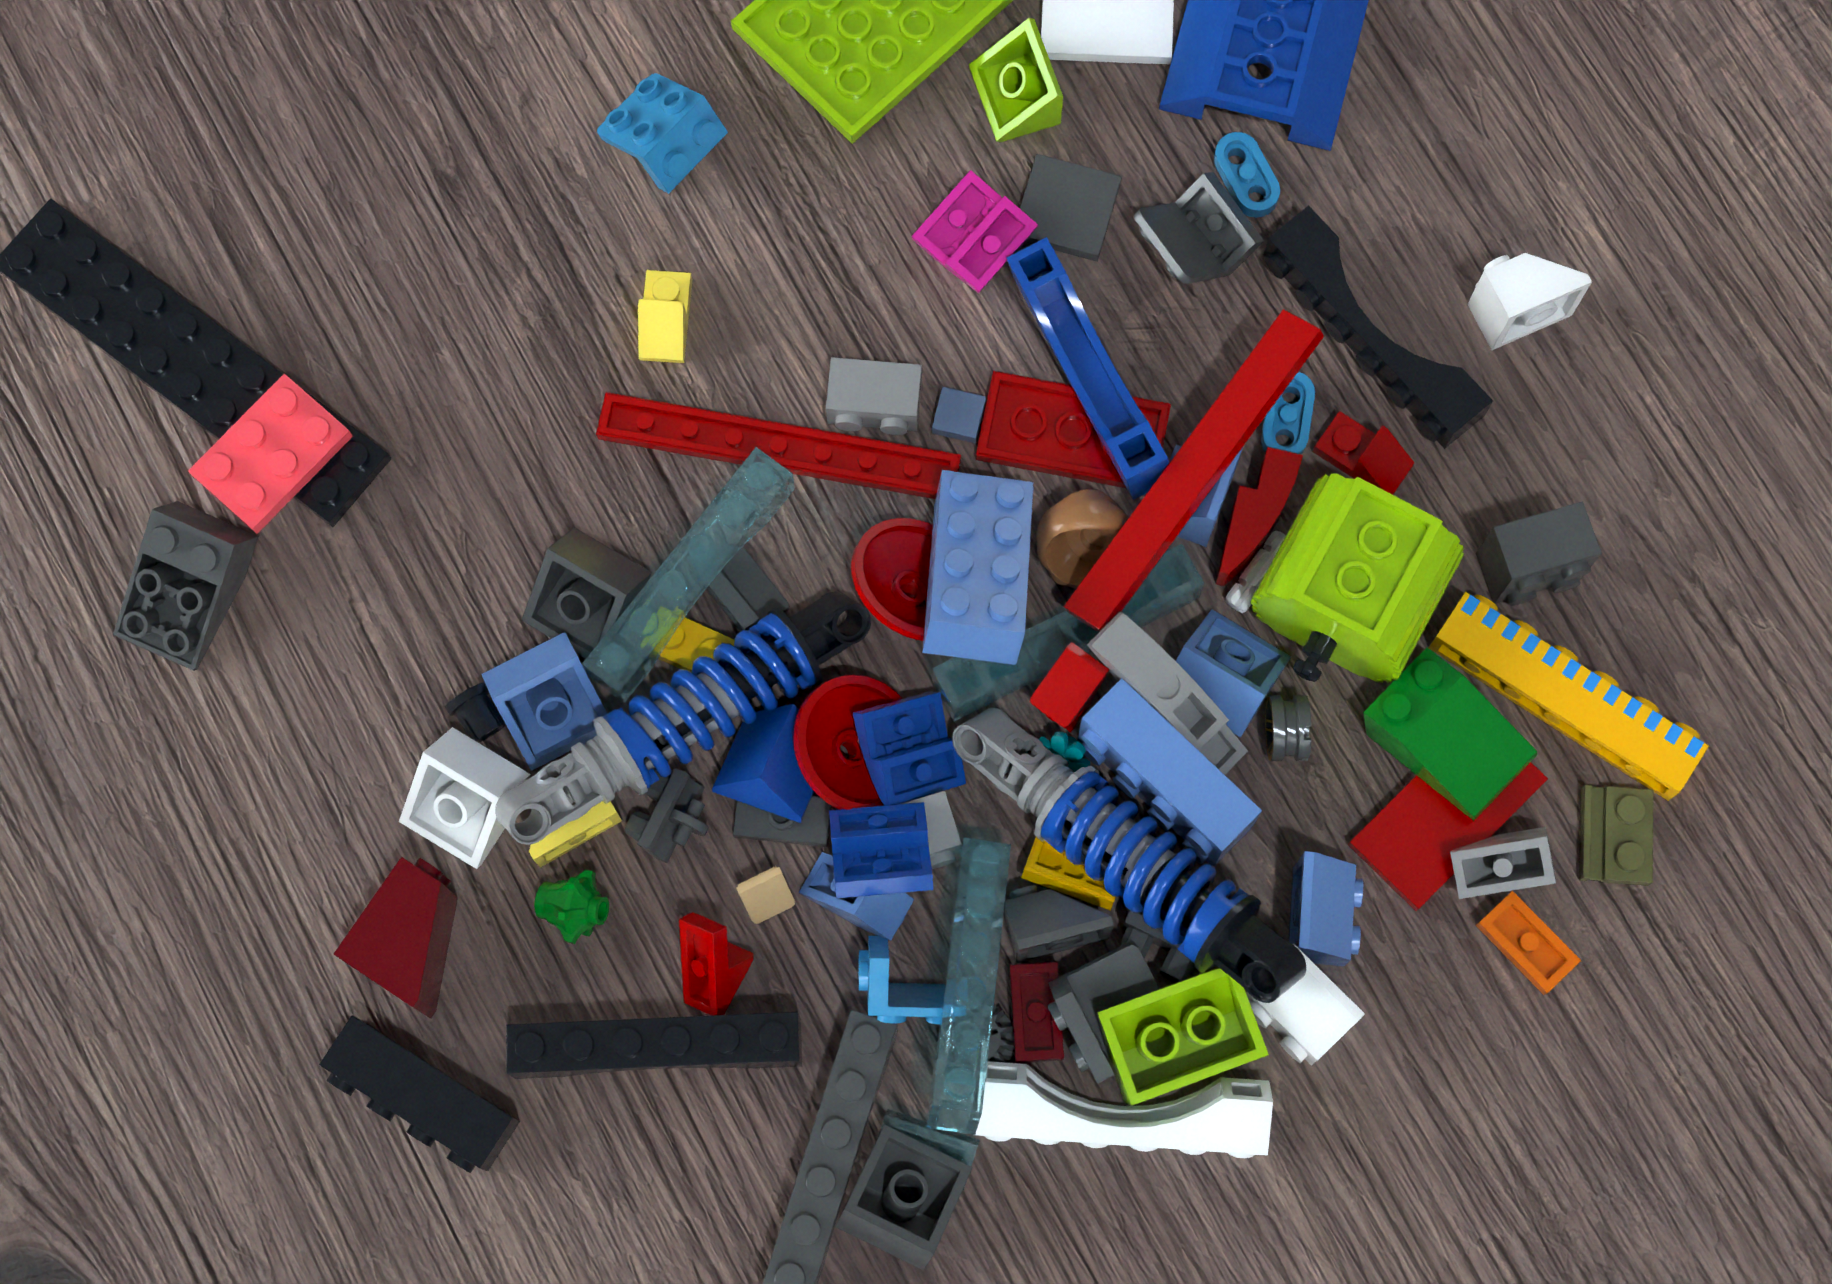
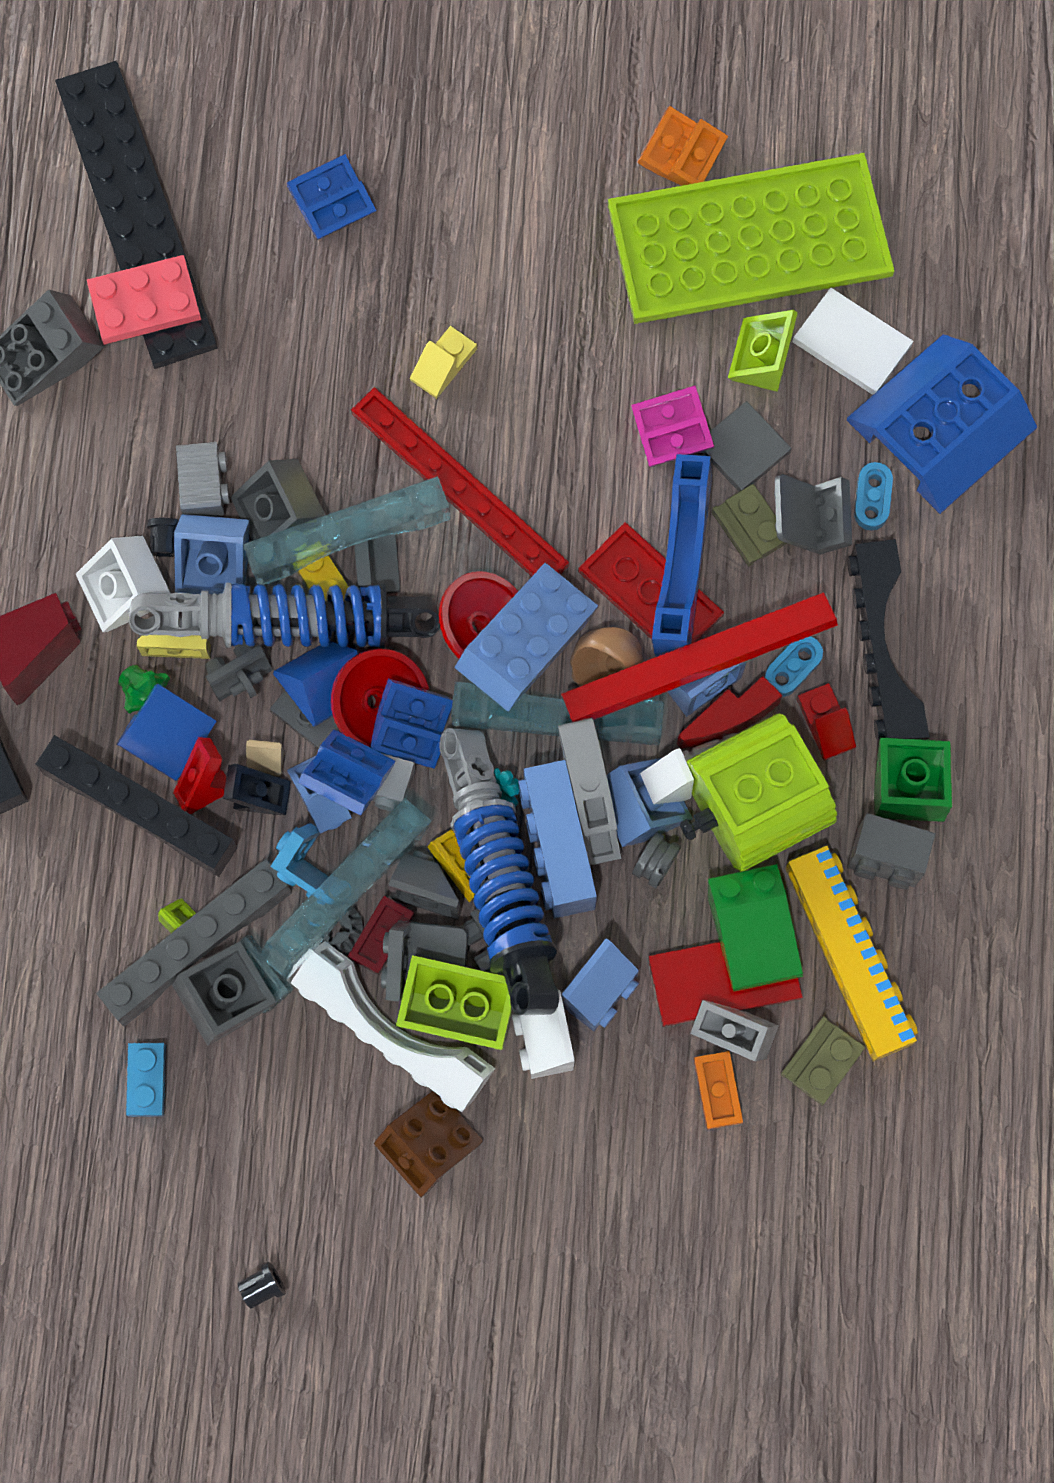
camera: 30 degrees right, 0 degrees up
(409, 207) = (331, 197): none -> blue slope
(476, 620) = (201, 479): none -> light grey brick
(633, 937) = (165, 732): none -> blue slope
(664, 129) = (520, 243): dark azure bracket -> none
(783, 938) = (256, 791): none -> black slope
(787, 1143) = (175, 915): none -> lime slope
(874, 395) = (538, 491): light grey brick -> none
(959, 414) = (585, 536): sand blue tile -> none
(1069, 687) = (531, 746): red slope -> none
(1132, 289) = (749, 524): none -> olive plate
(1245, 626) = (669, 779): none -> white slope
(1249, 1216) = (427, 1142): none -> reddish brown bracket
(1507, 460) = (913, 780): none -> green slope
(1524, 296) = (996, 683): white slope -> none

